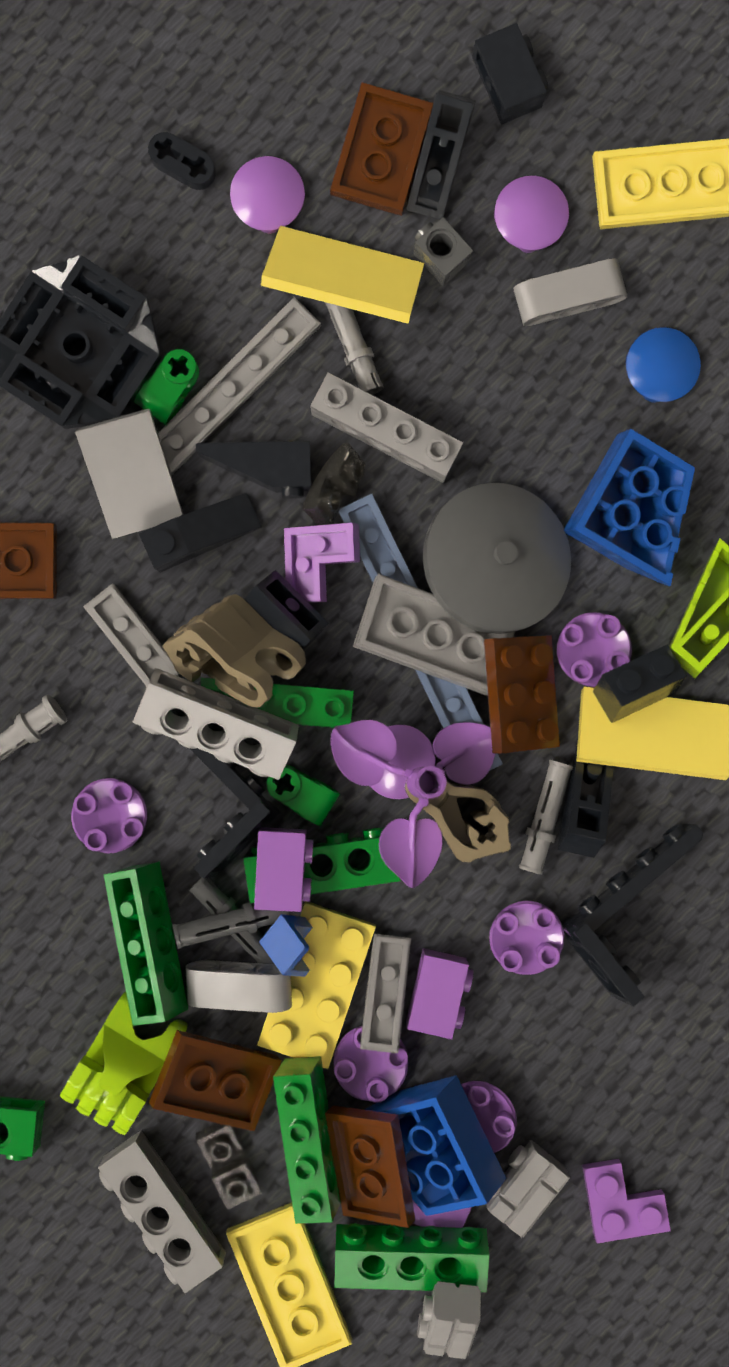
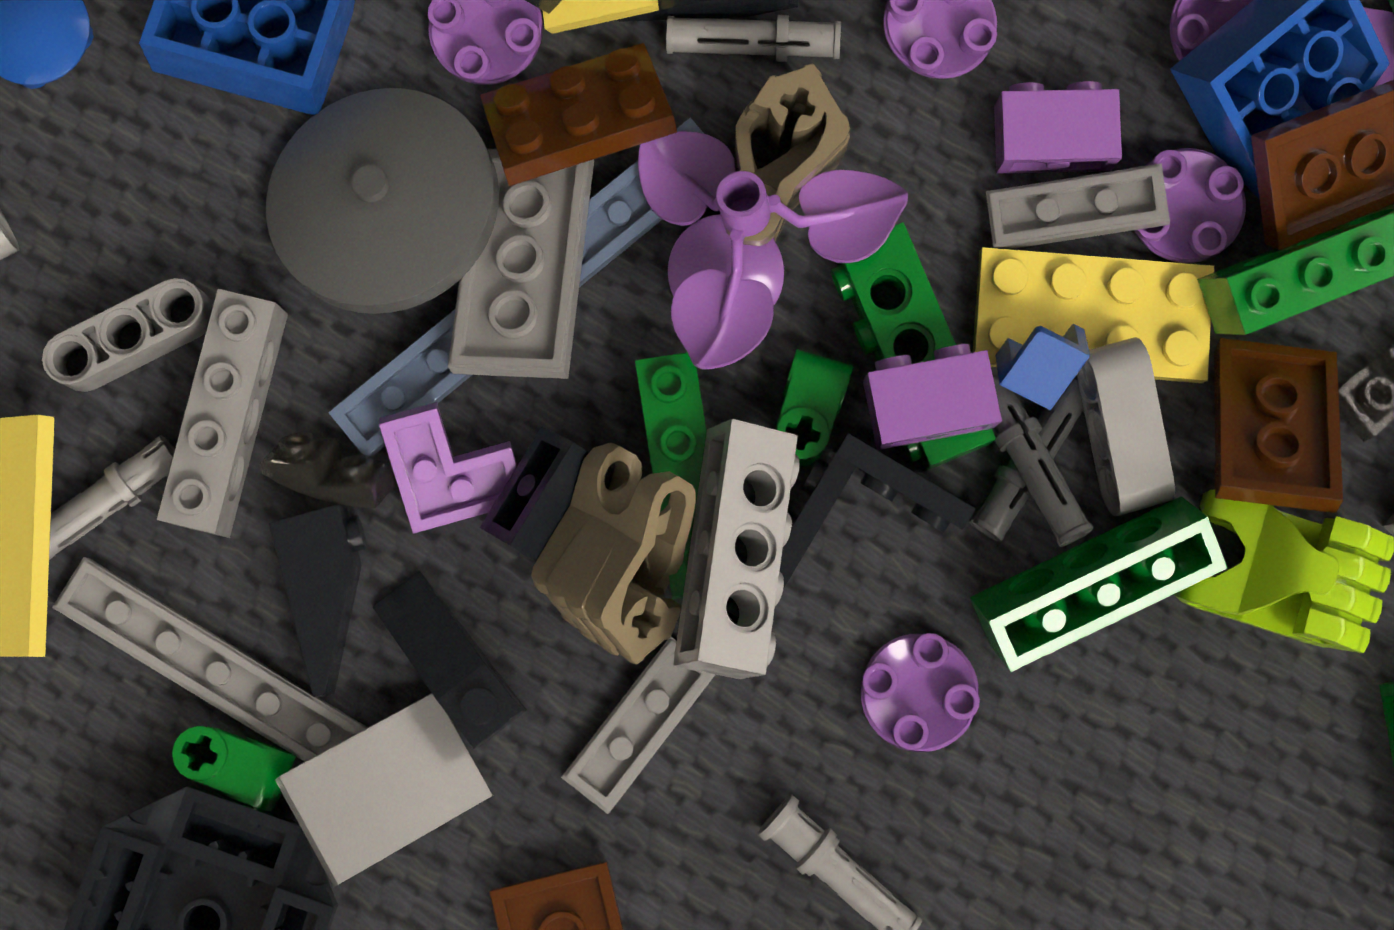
camera: 105 degrees left, 5 degrees down
(455, 364) = (101, 335): none -> light grey beam

